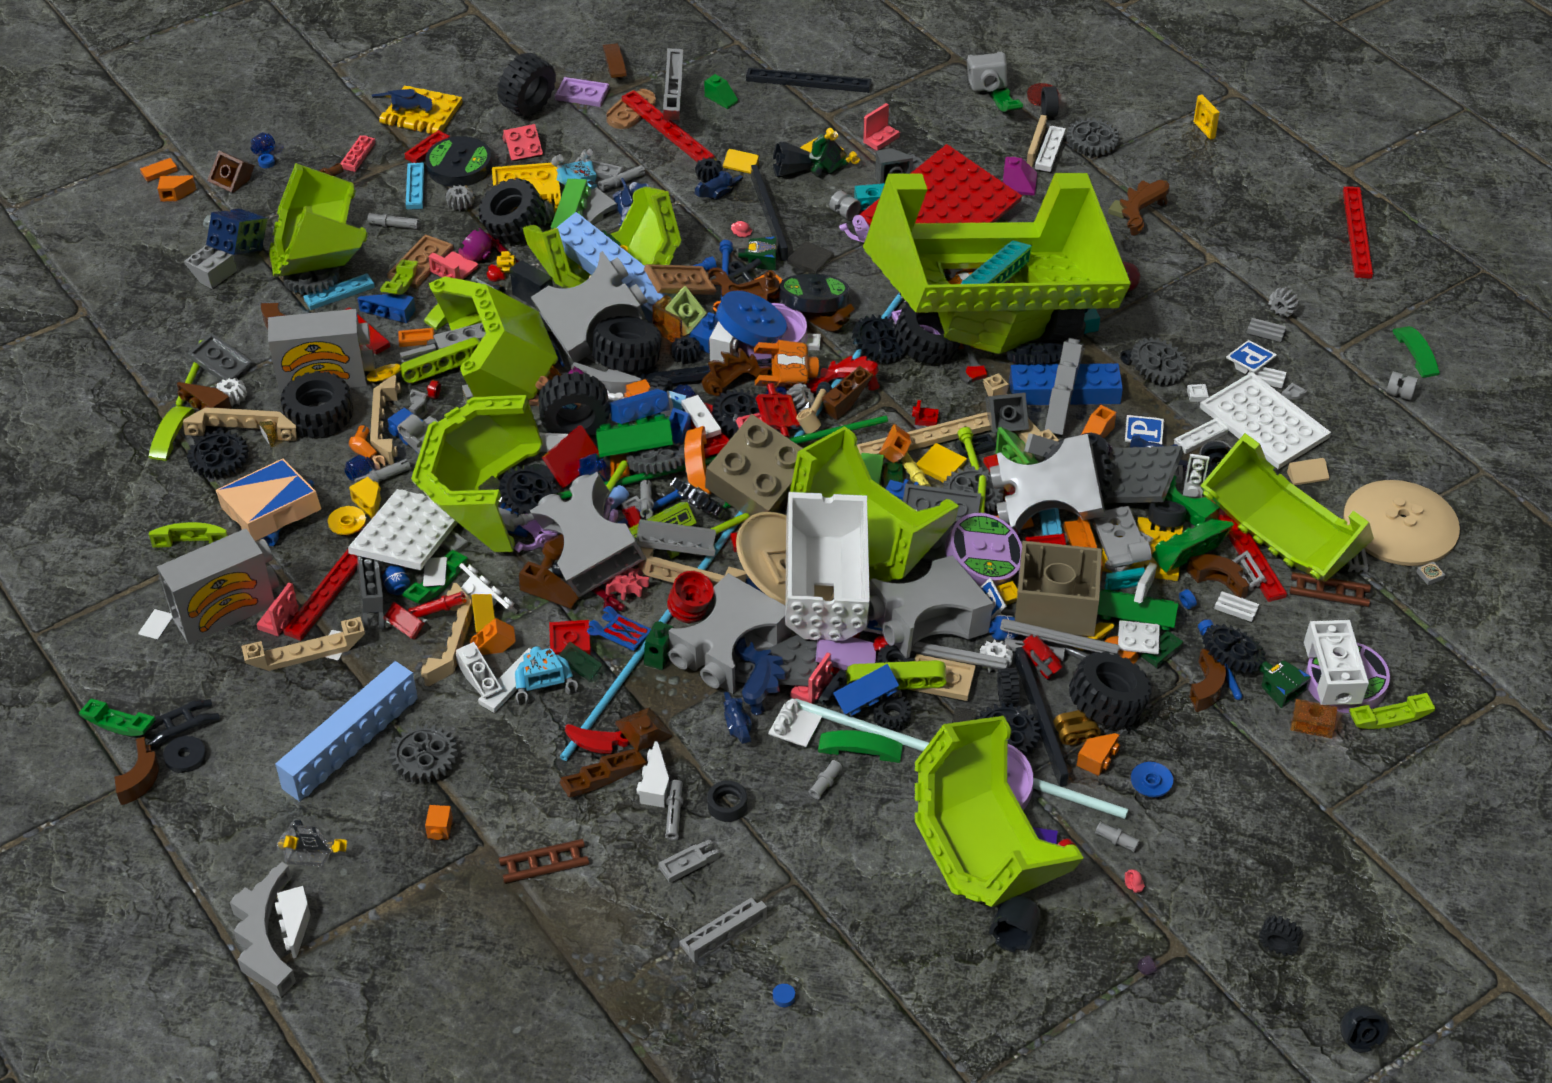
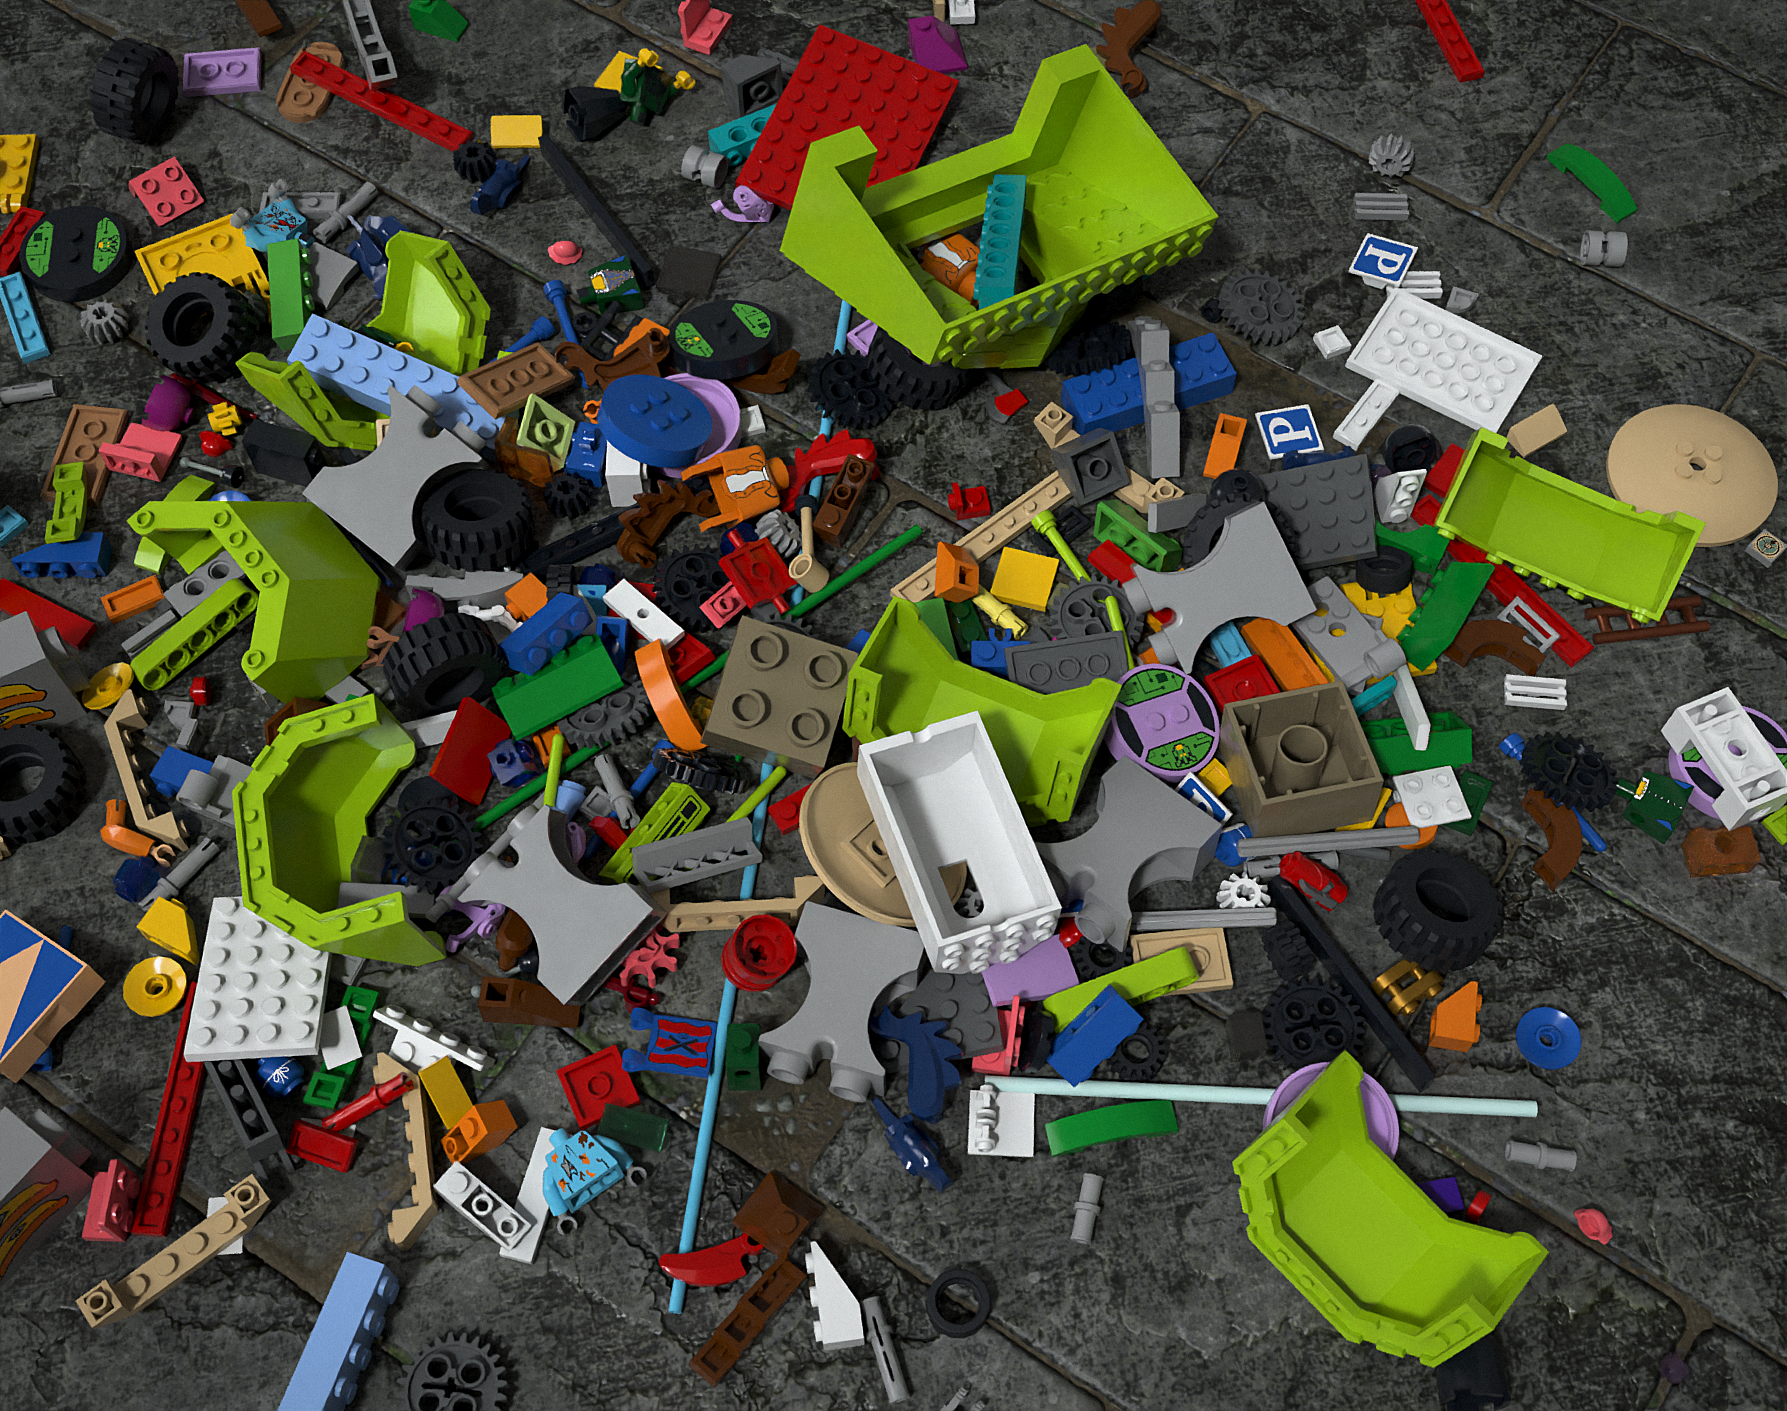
camera: 20 degrees left, 15 degrees up
(1187, 599) = (1467, 704): blue tile -> none

